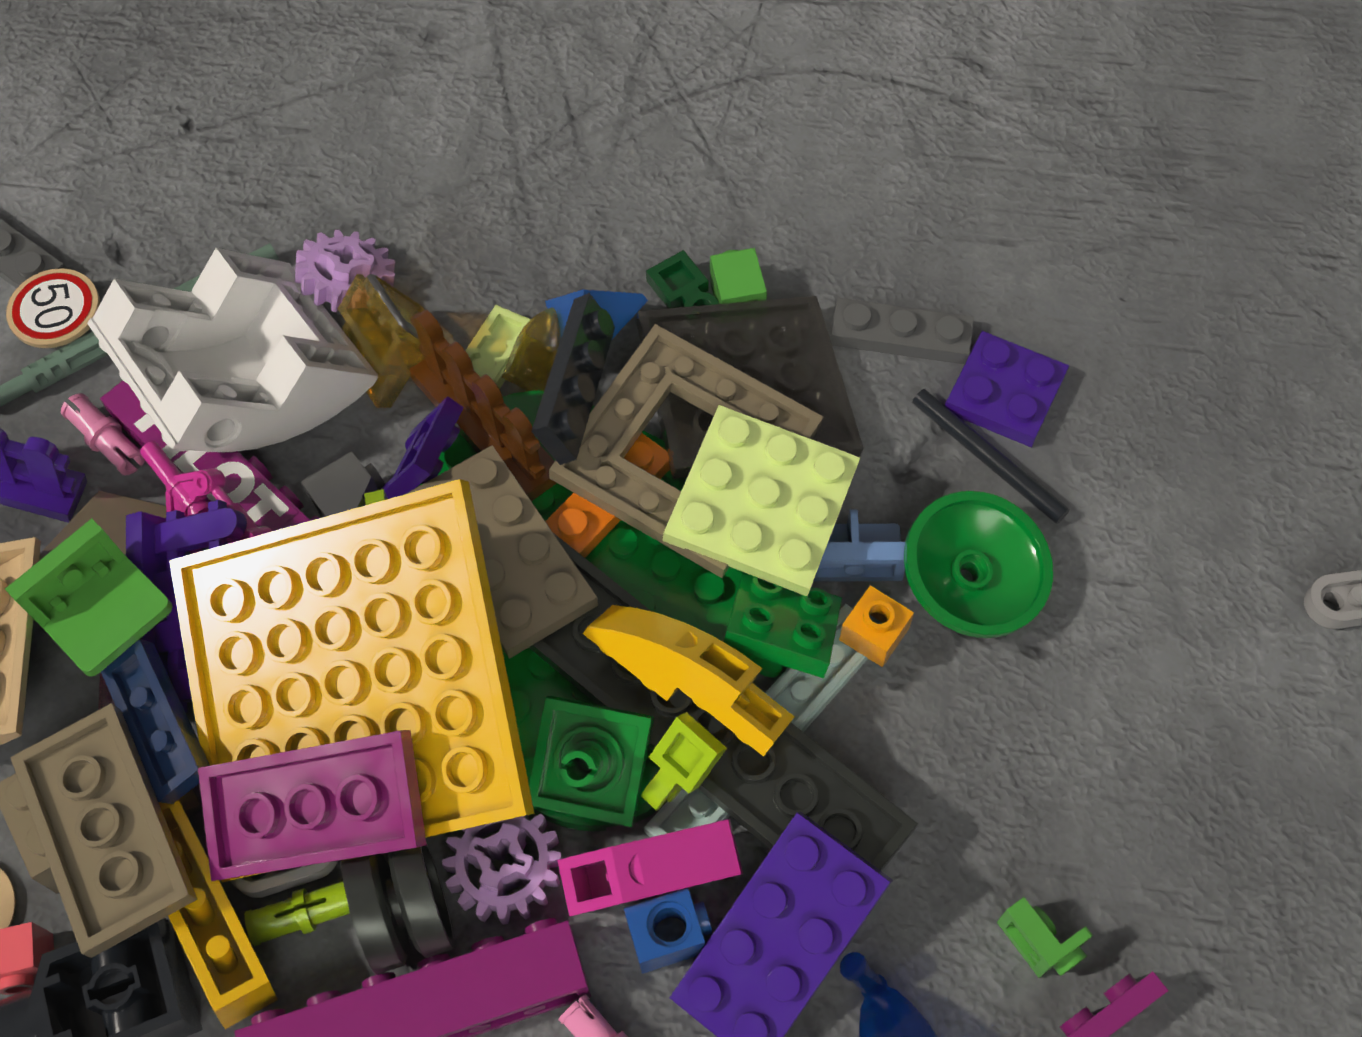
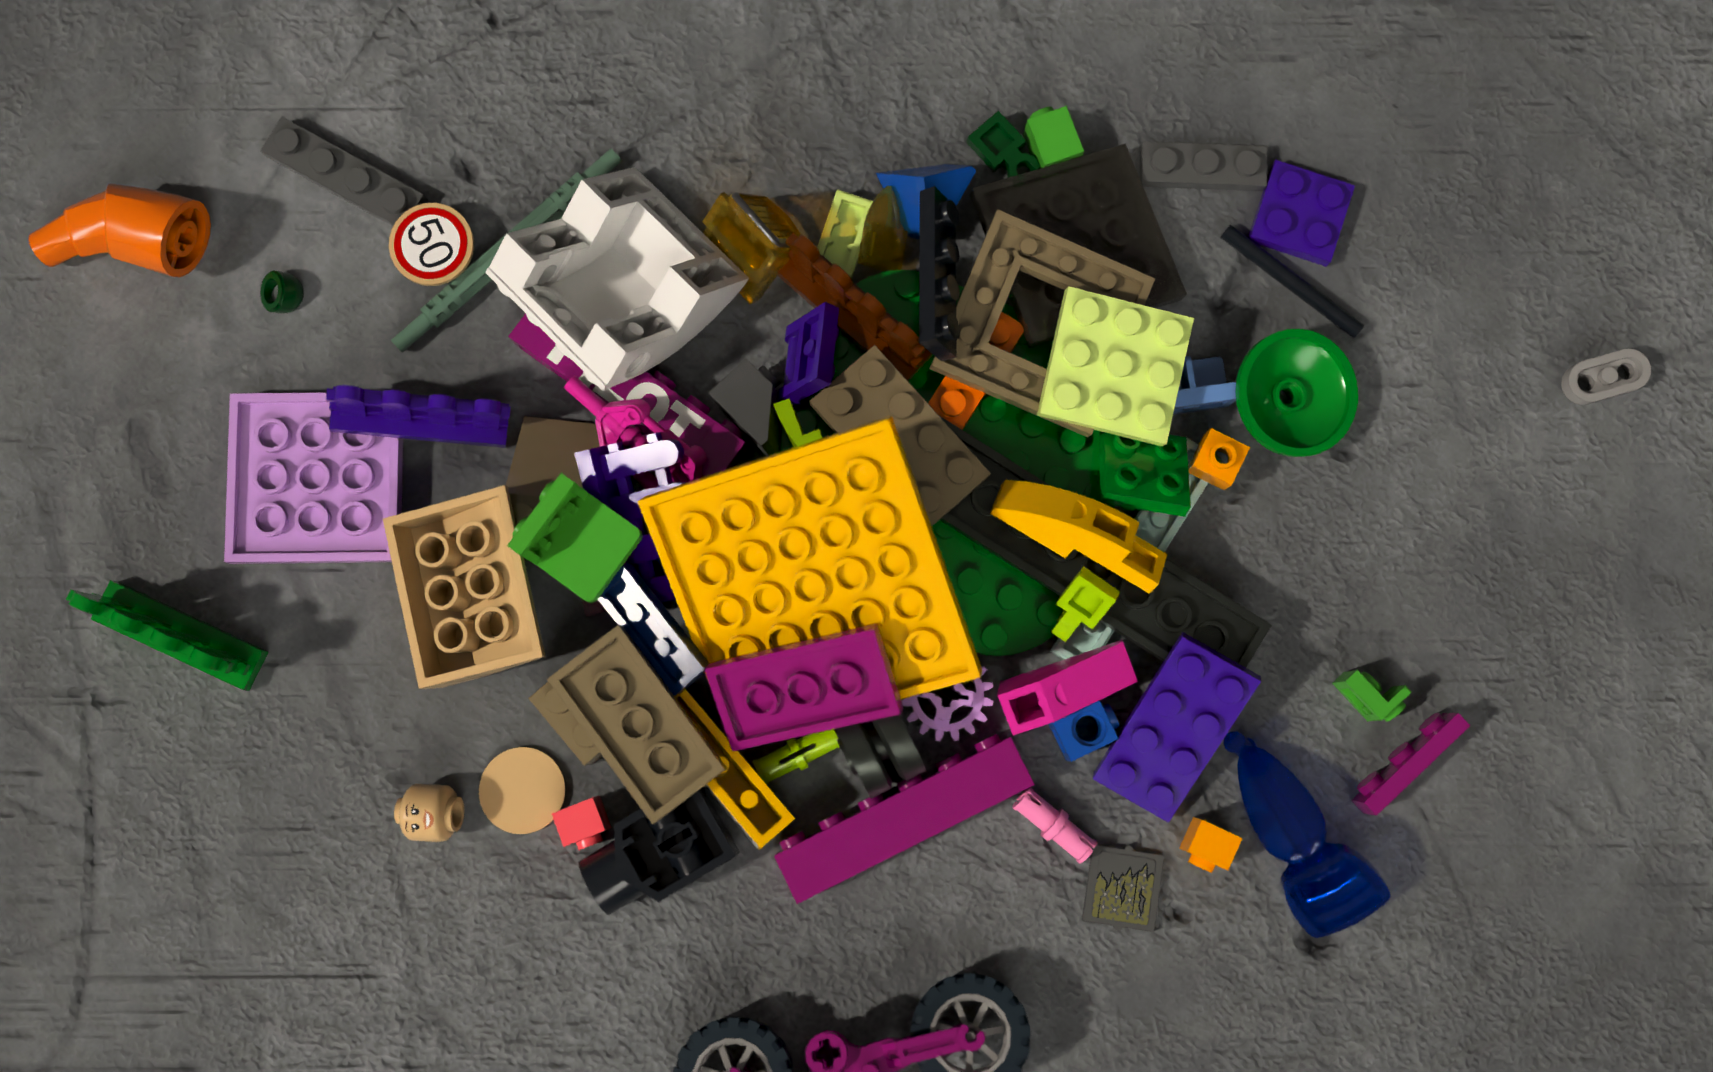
camera: 10 degrees left, 20 degrees up
(102, 434) = (513, 363): bright pink pin -> none
(333, 262) = (690, 171): lavender gear -> none
(590, 760) = (1009, 609): green plate -> none

